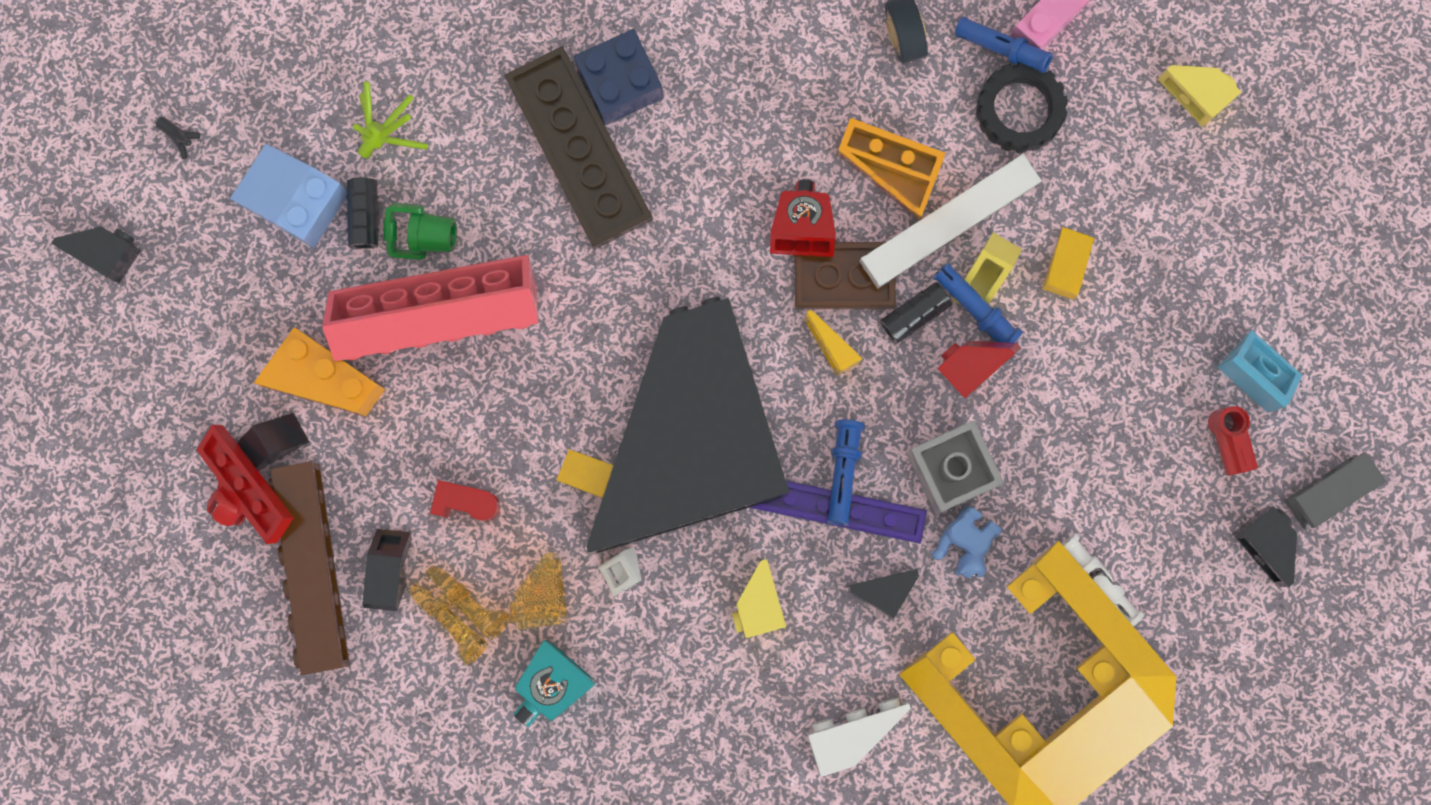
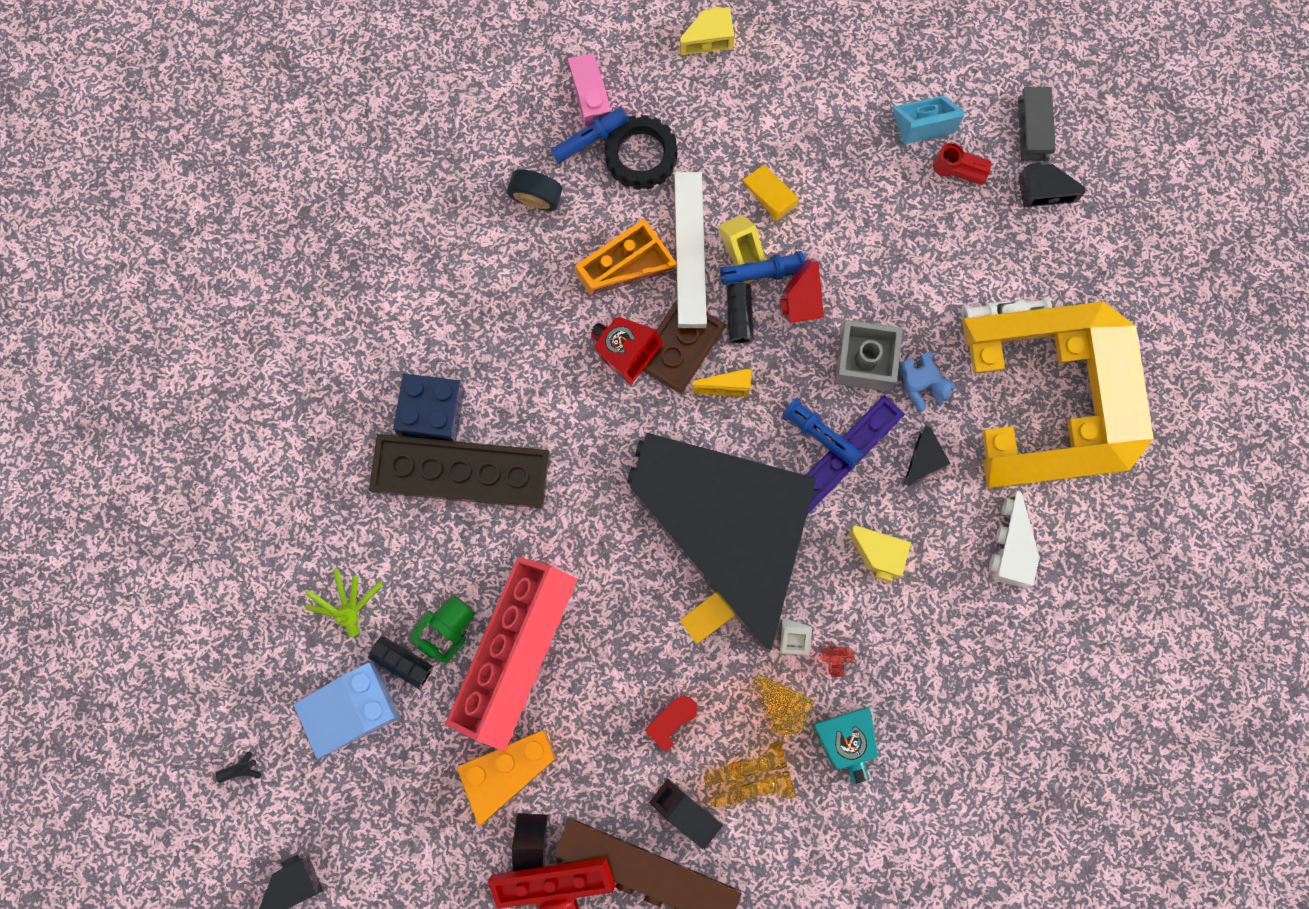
camera: 60 degrees left, 5 degrees down
(626, 622) = (836, 657): none -> clear red tile

